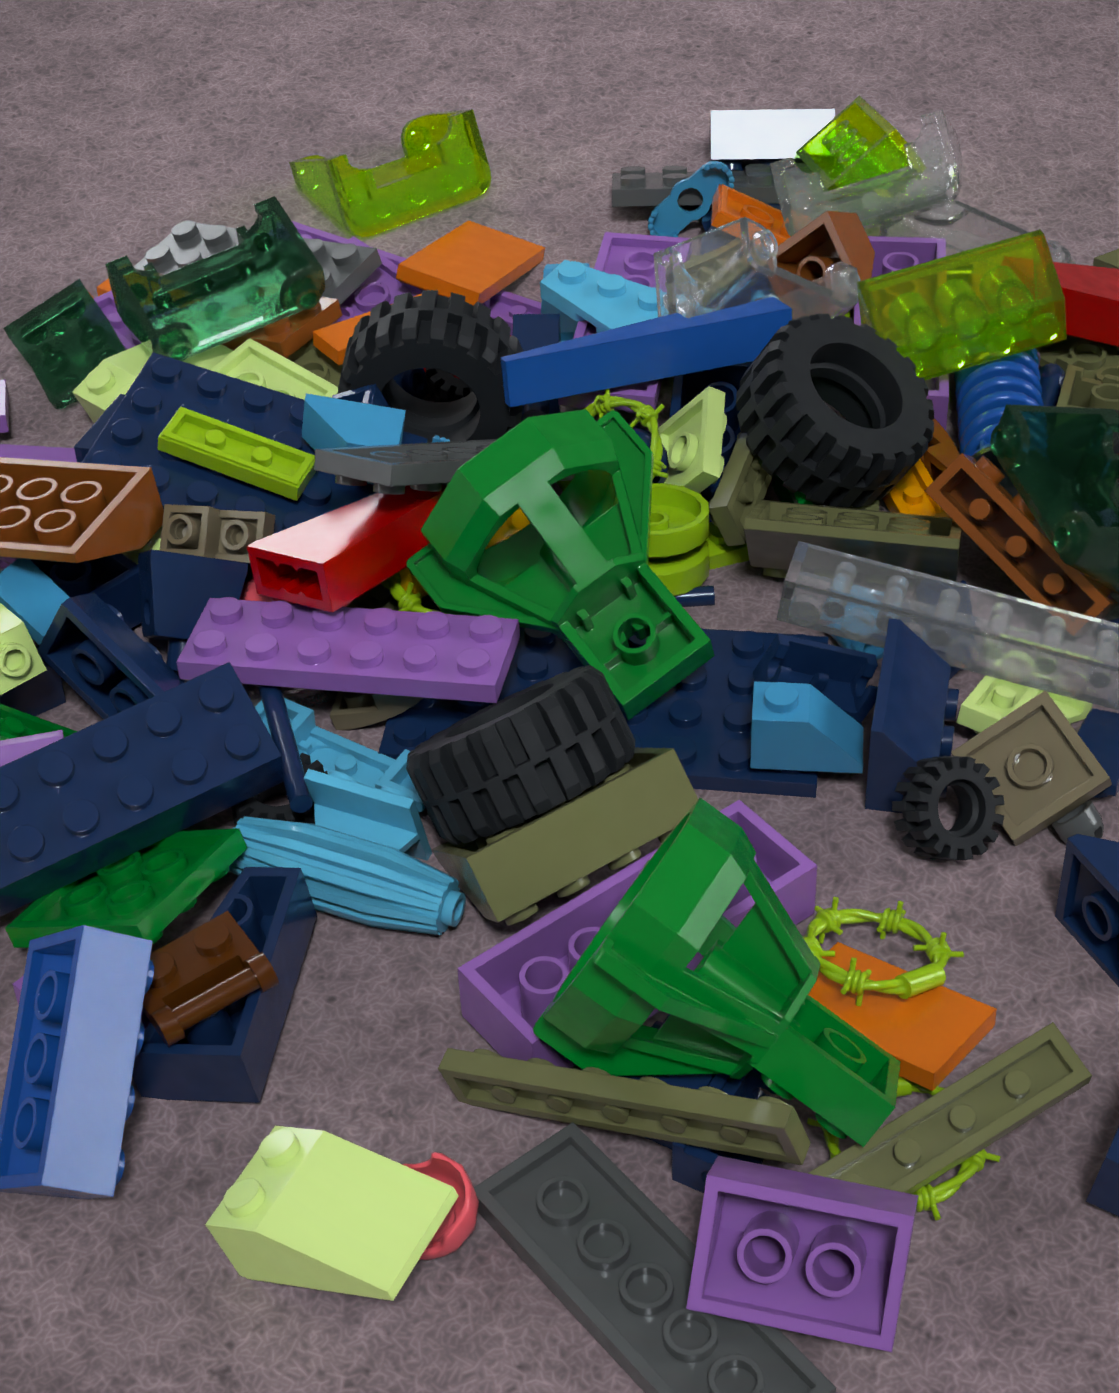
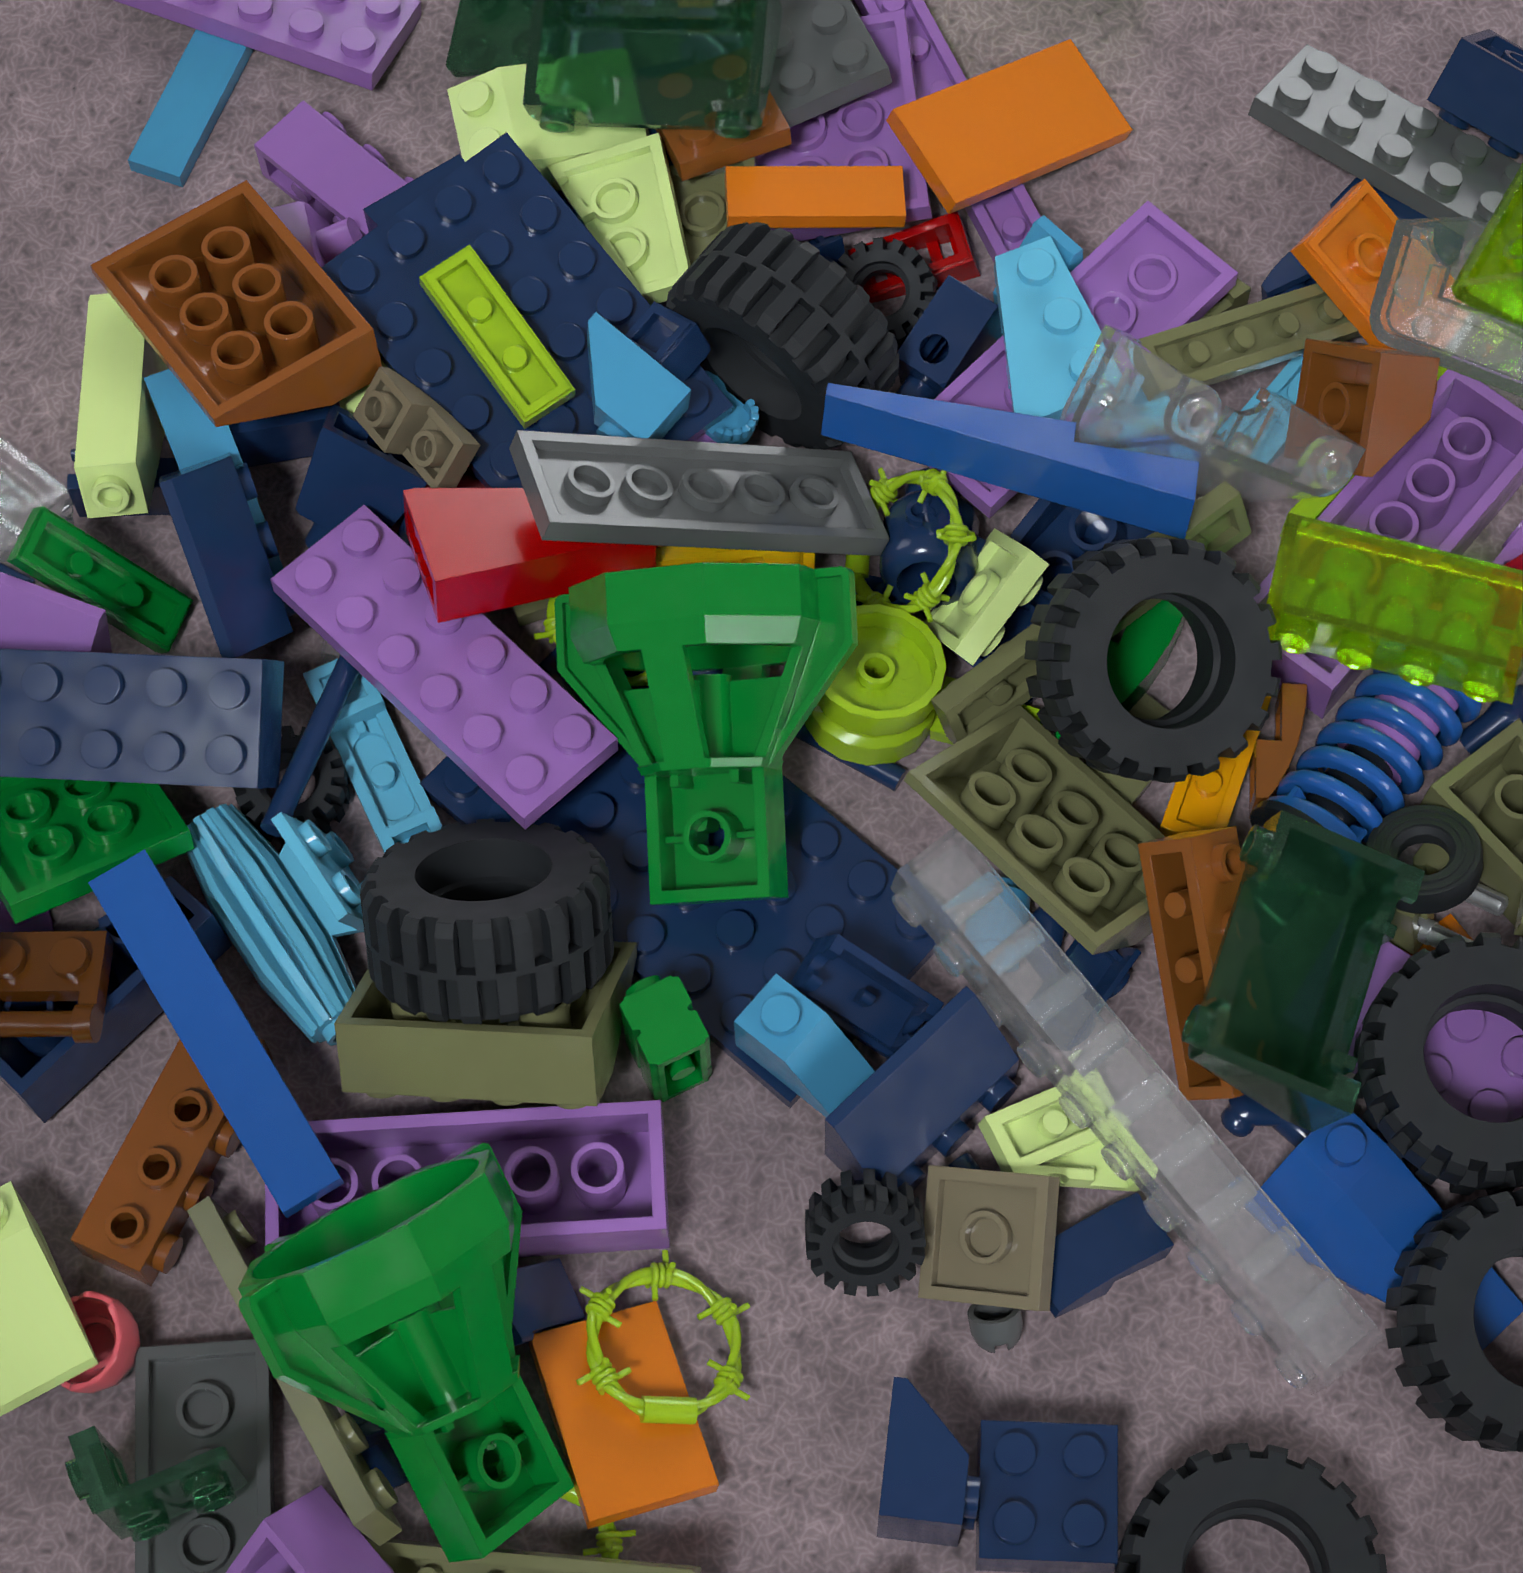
camera: 35 degrees right, 25 degrees up
(369, 926) = (216, 1034): none -> blue slope
(386, 1050) = (158, 1174): none -> dark orange brick
(570, 1257) = (150, 1503): none -> clear green bracket
(670, 218) = (1305, 165): dark azure piece -> none
(710, 756) = (665, 1036): none -> green brick

